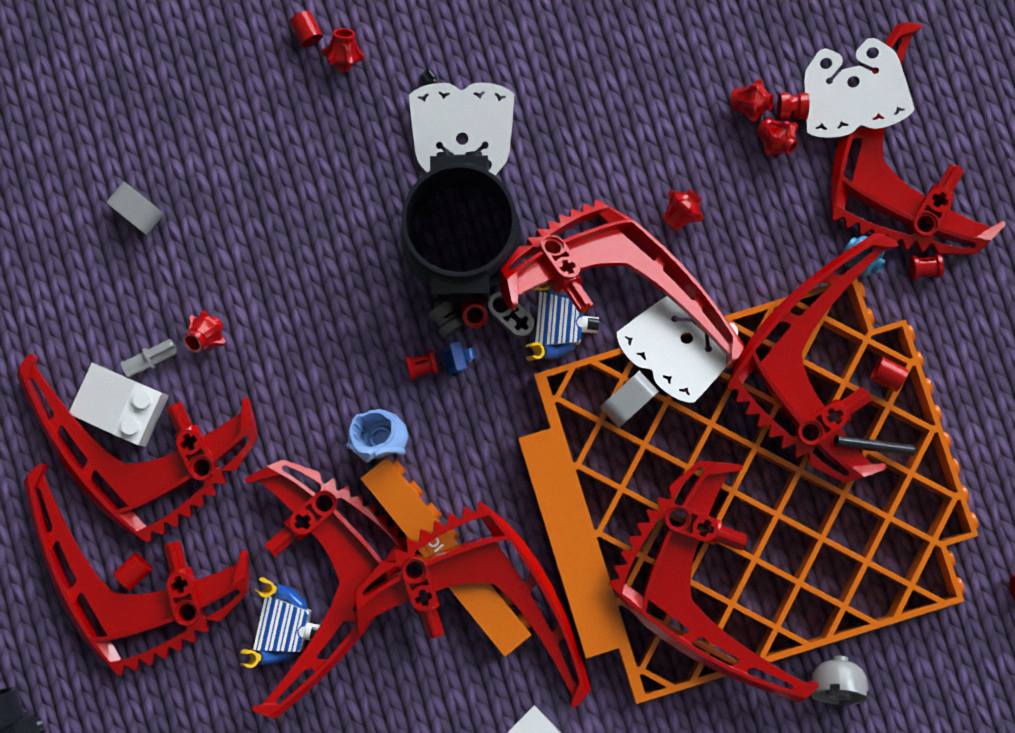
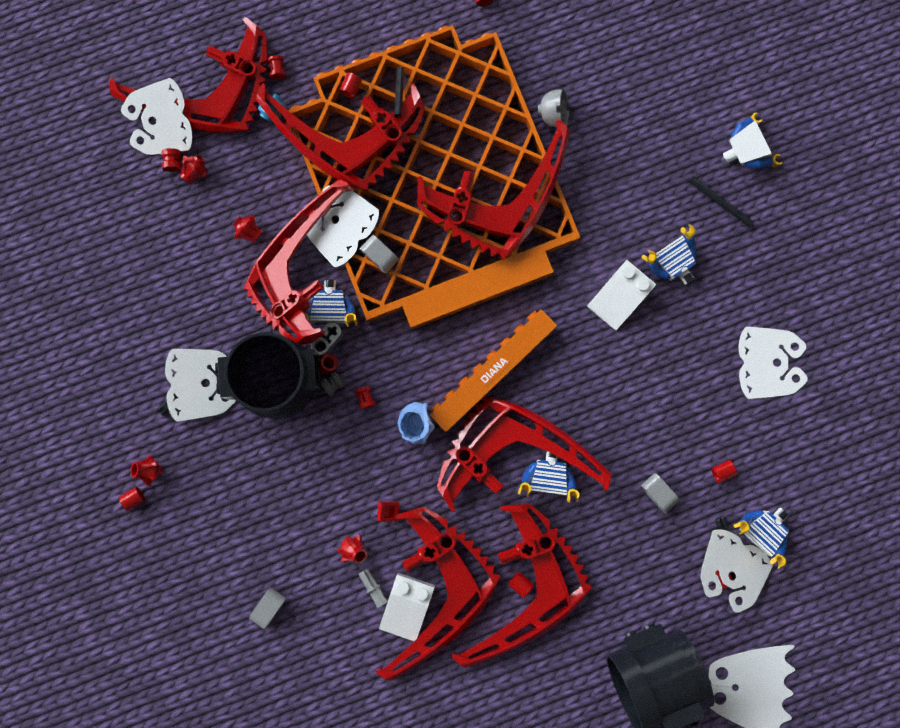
camera: 90 degrees left, 0 degrees up
(255, 386) = (387, 511): none -> red plate
(456, 358) = (358, 374): blue tile -> none
(473, 562) = (497, 354): red piece -> none
(752, 100) = (168, 187): red rock -> none

